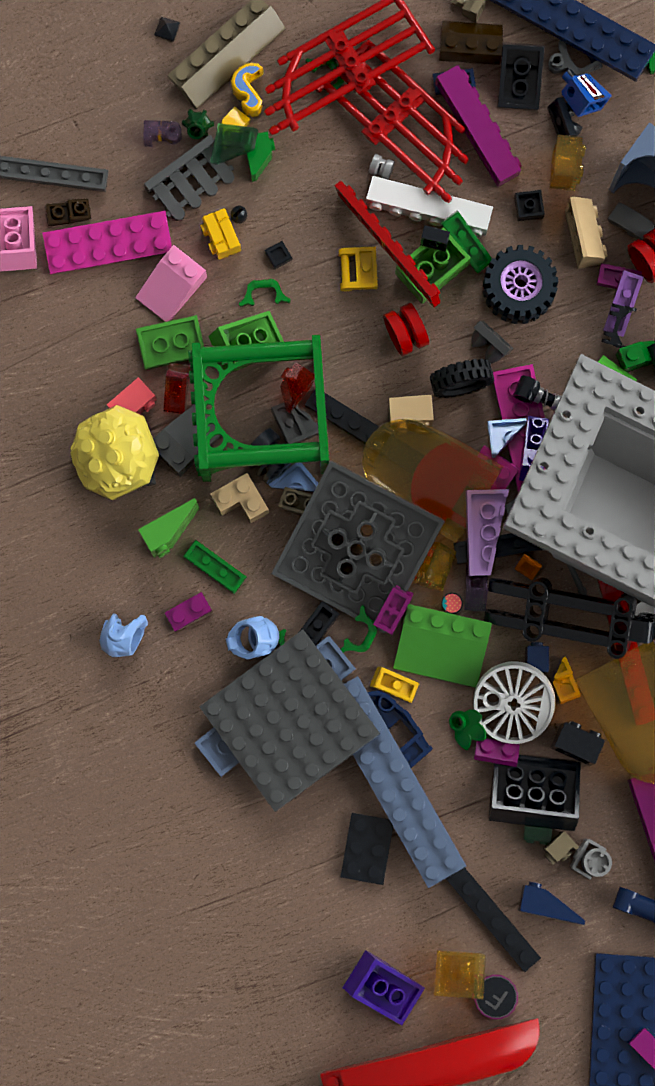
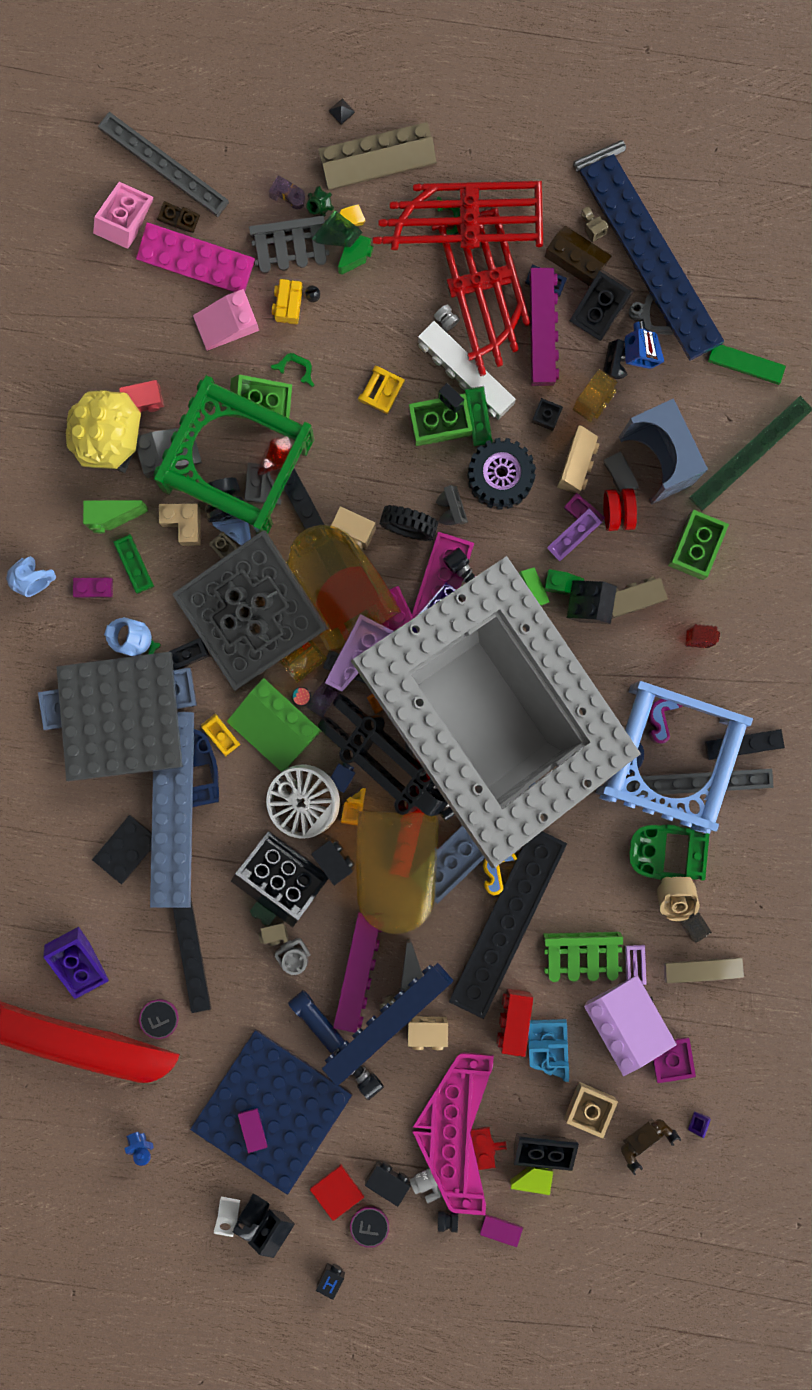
camera: 25 degrees right, 5 degrees up
(168, 341) = (193, 363): bright green tile -> none
(176, 388) = (179, 404): clear red slope -> none
(244, 92) = (372, 187): yellow animal -> none
(278, 255) = (325, 343): black tile -> none
(349, 646) = (224, 668): green helmet -> none
(393, 249) = (414, 388): red plate -> none
(393, 609) = (248, 675): magenta hinge -> none
(406, 329) = (388, 459): red wheel -> none
(460, 975) = (138, 987): clear yellow brick -> none
(469, 729) = (256, 800): green plate -> none
(497, 752) = (268, 832): magenta plate -> none
(502, 432) = (417, 584): light blue tile -> none
(543, 903) = (236, 969): dark blue slope -> none
(623, 311) = (565, 542): black piece -> none

